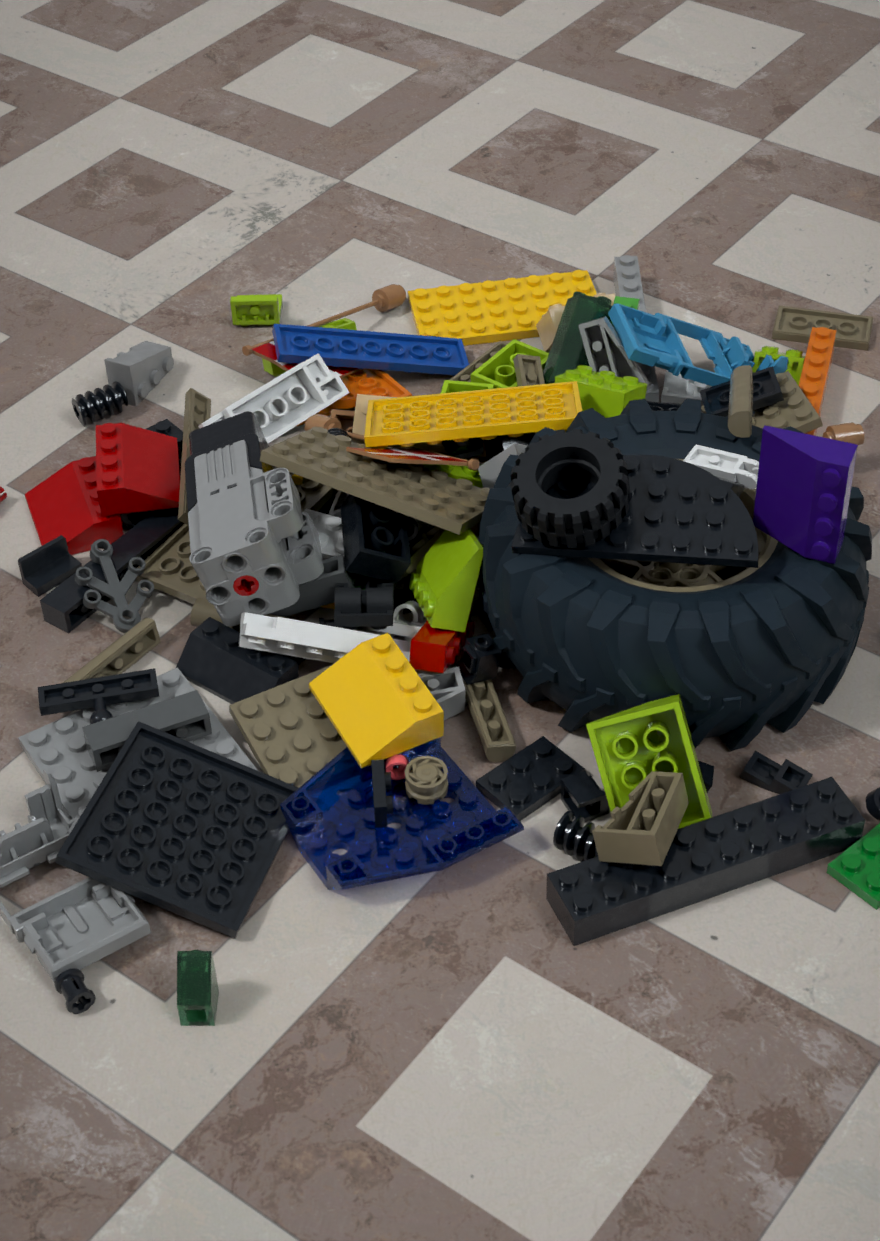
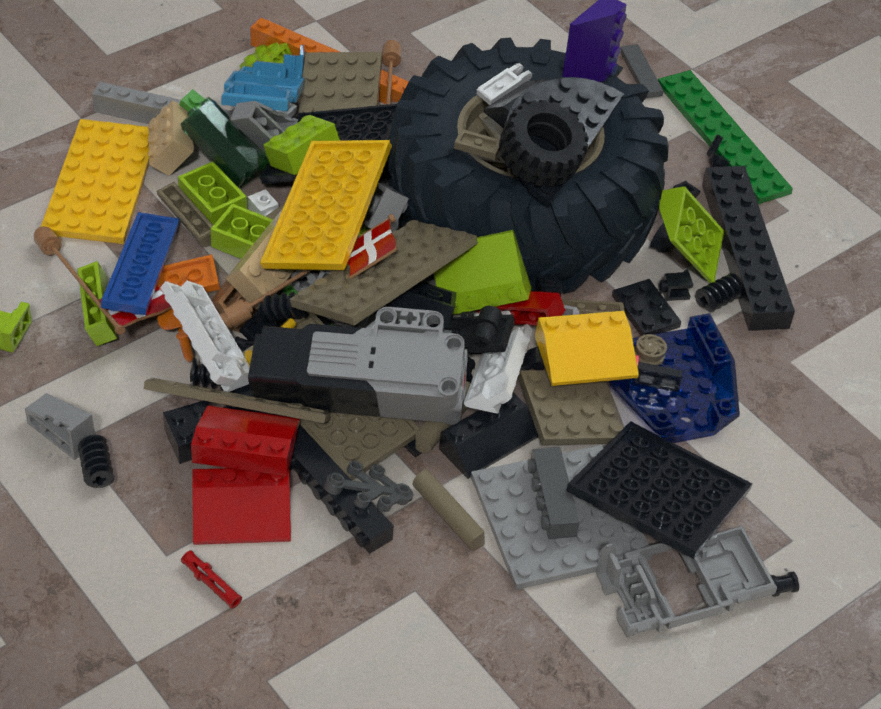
camera: 80 degrees left, 5 degrees up
(47, 566) = (314, 536): black panel -> none
(98, 693) = (500, 516): black plate -> none
(196, 988) = (805, 510): clear green slope -> none
(528, 370) = (242, 179): dark tan plate -> none
(646, 823) = (742, 246): dark tan wedge -> none
(741, 402) = (436, 52): dark tan brick -> none
(765, 393) = (324, 82): black plate -> none
(796, 326) = (229, 29): dark tan tile -> none

